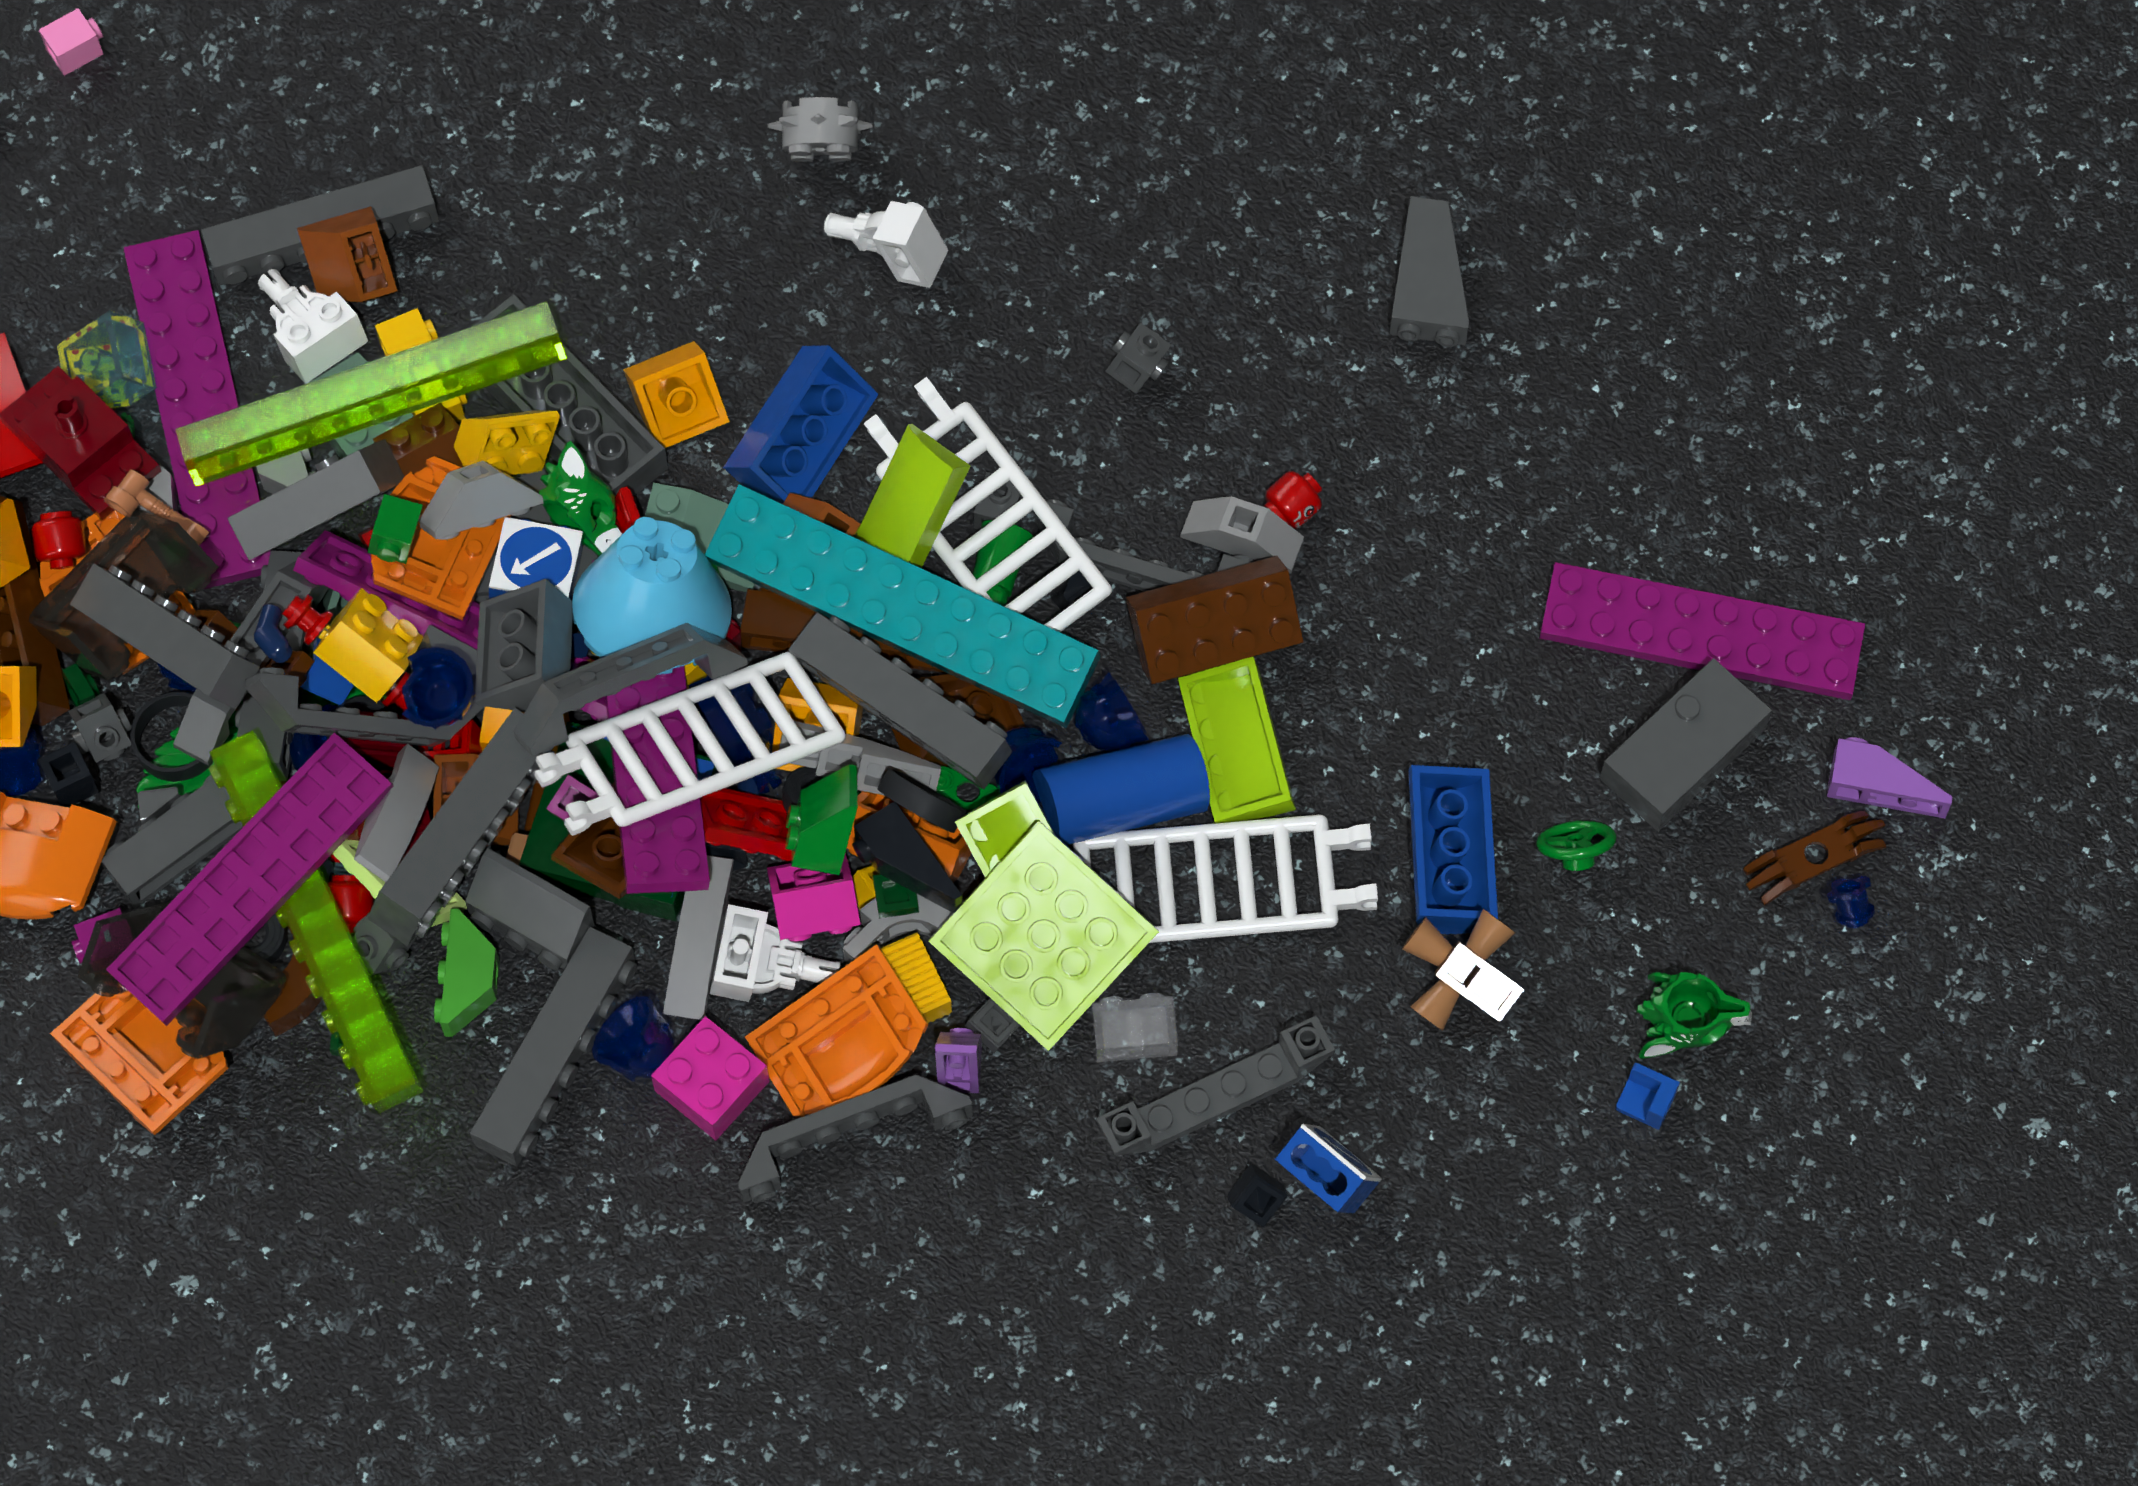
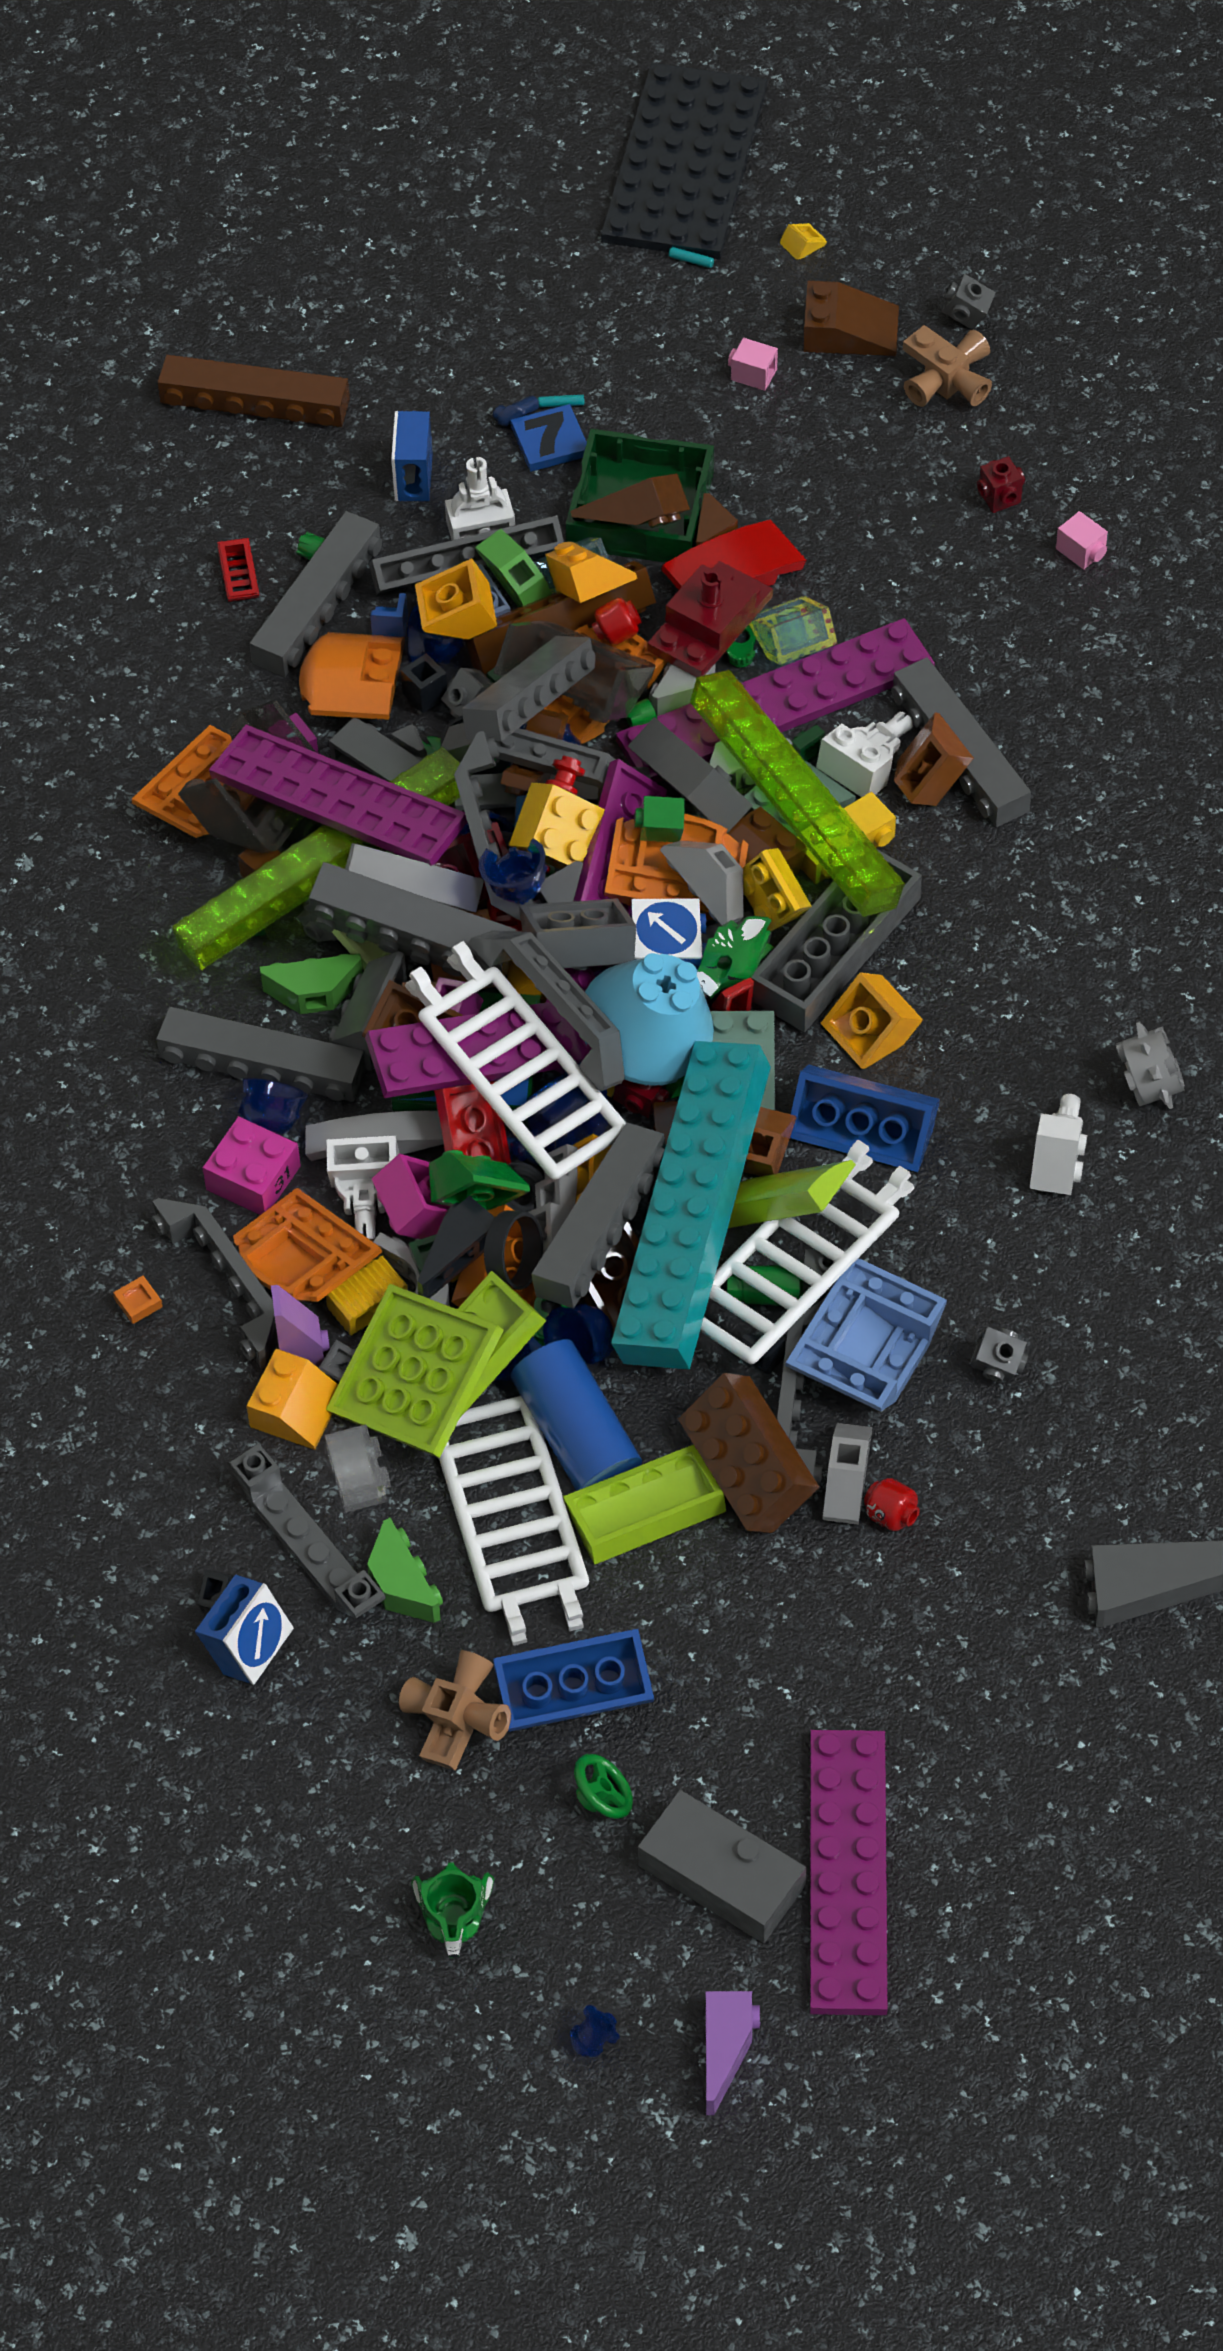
camera: 80 degrees right, 10 degrees down
(132, 493) = (666, 657): nougat brick -> none
(269, 637) = (542, 754): dark blue arm -> none
(276, 378) = (808, 743): none -> dark green plate
(857, 1232) = (137, 1299): none -> orange plate
(1030, 1083) = (292, 1400): none -> light orange slope
(1097, 475) = (868, 1335): none -> medium blue slope
(1108, 717) = (642, 1395): clear blue helmet -> none
(1276, 1002) = (402, 1576): none -> bright green slope
(1647, 1096) = (369, 1891): blue panel -> none
(1797, 869) = (649, 2020): reddish brown piece -> none

